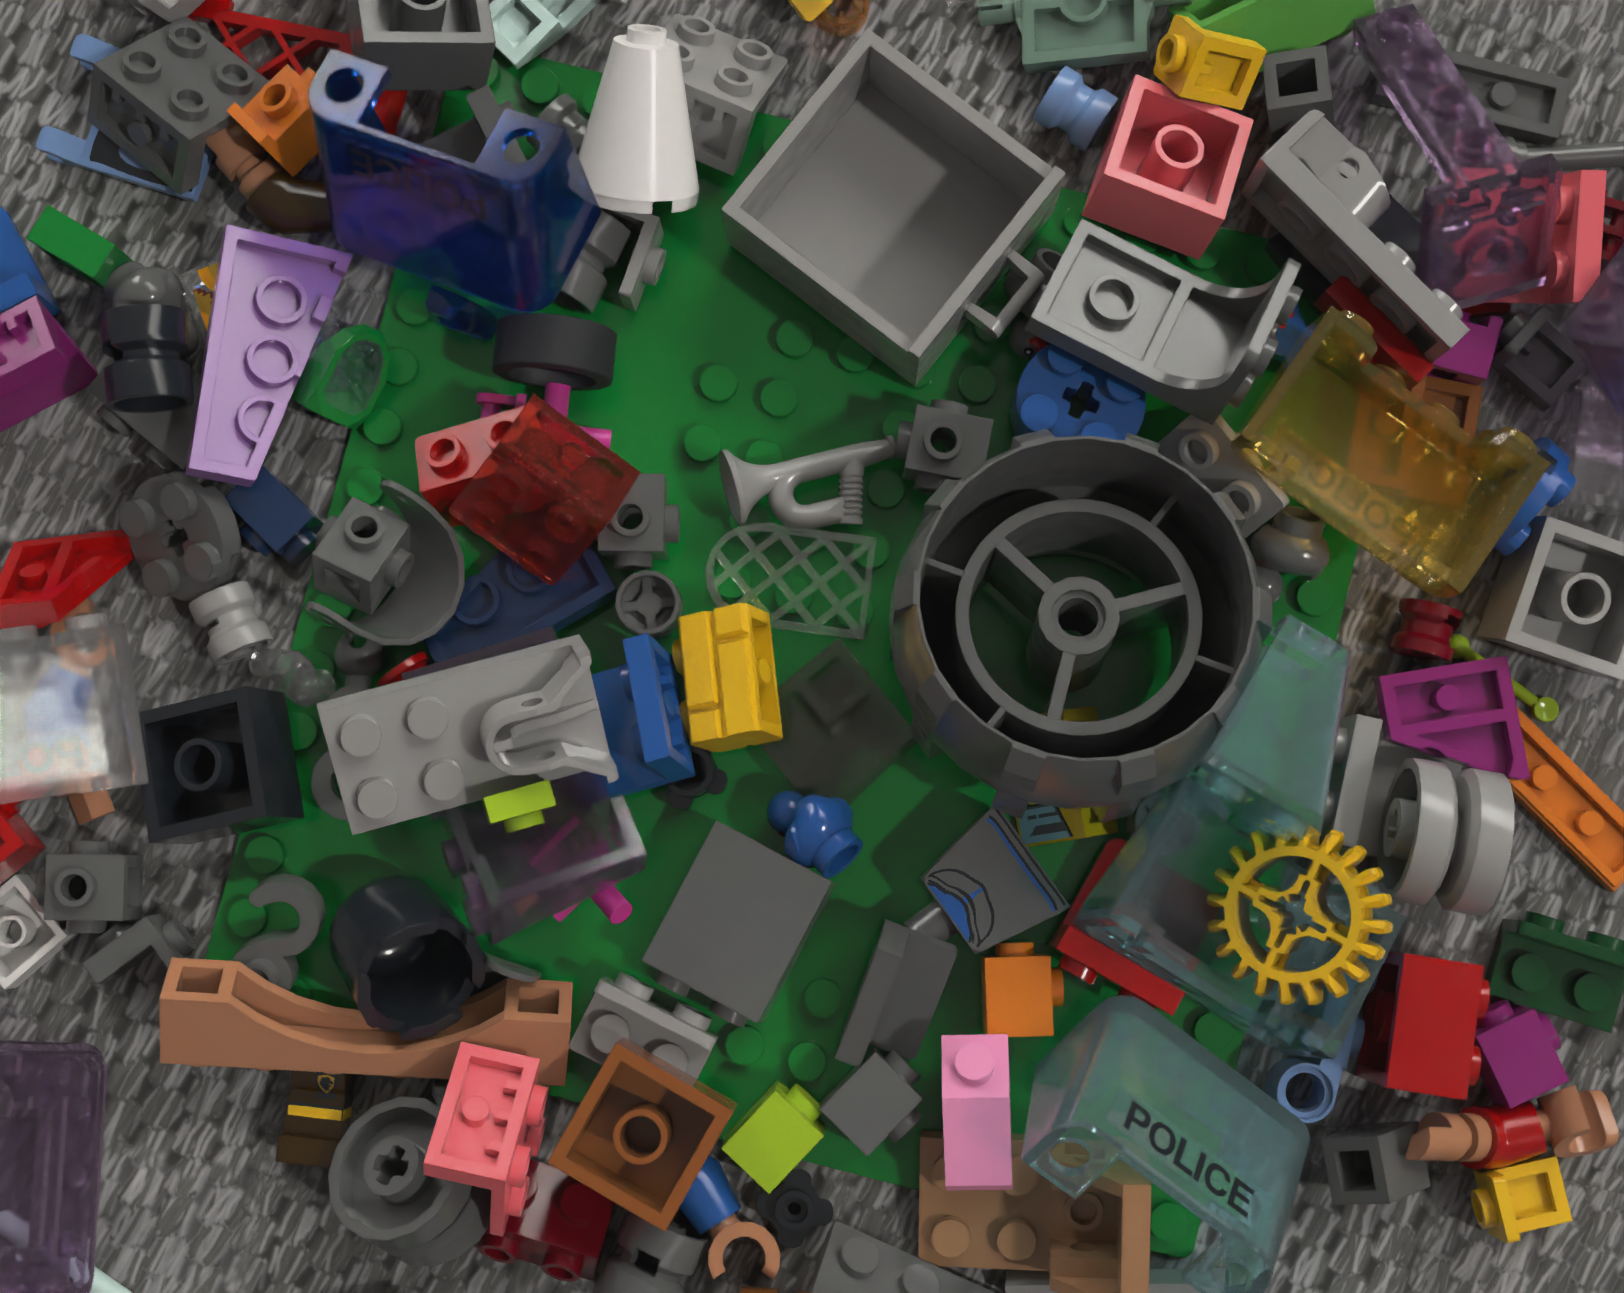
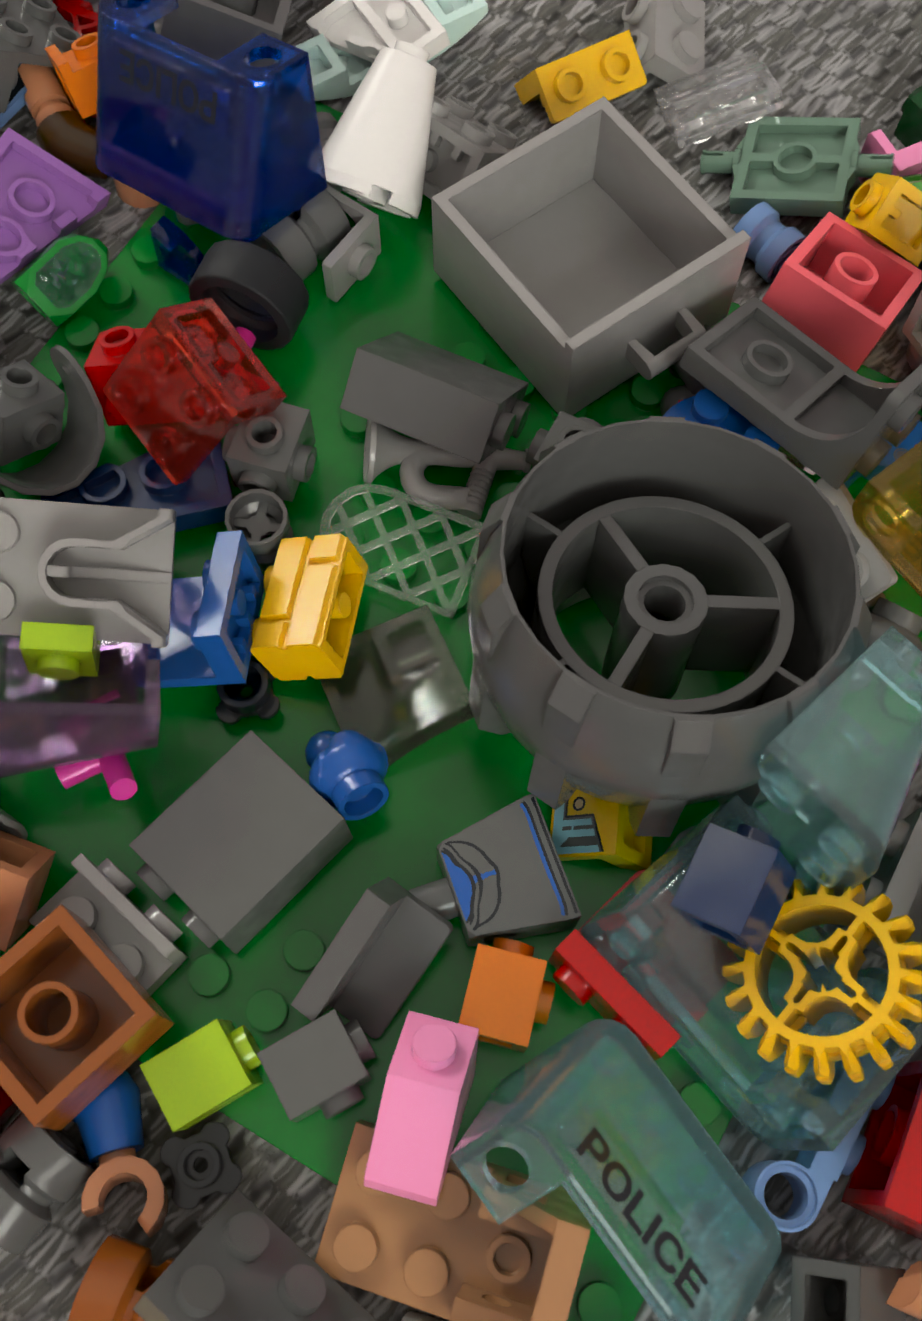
camera: 15 degrees right, 15 degrees down
(789, 421) = (436, 396): none -> dark grey brick
(1203, 865) = (735, 885): none -> dark blue brick

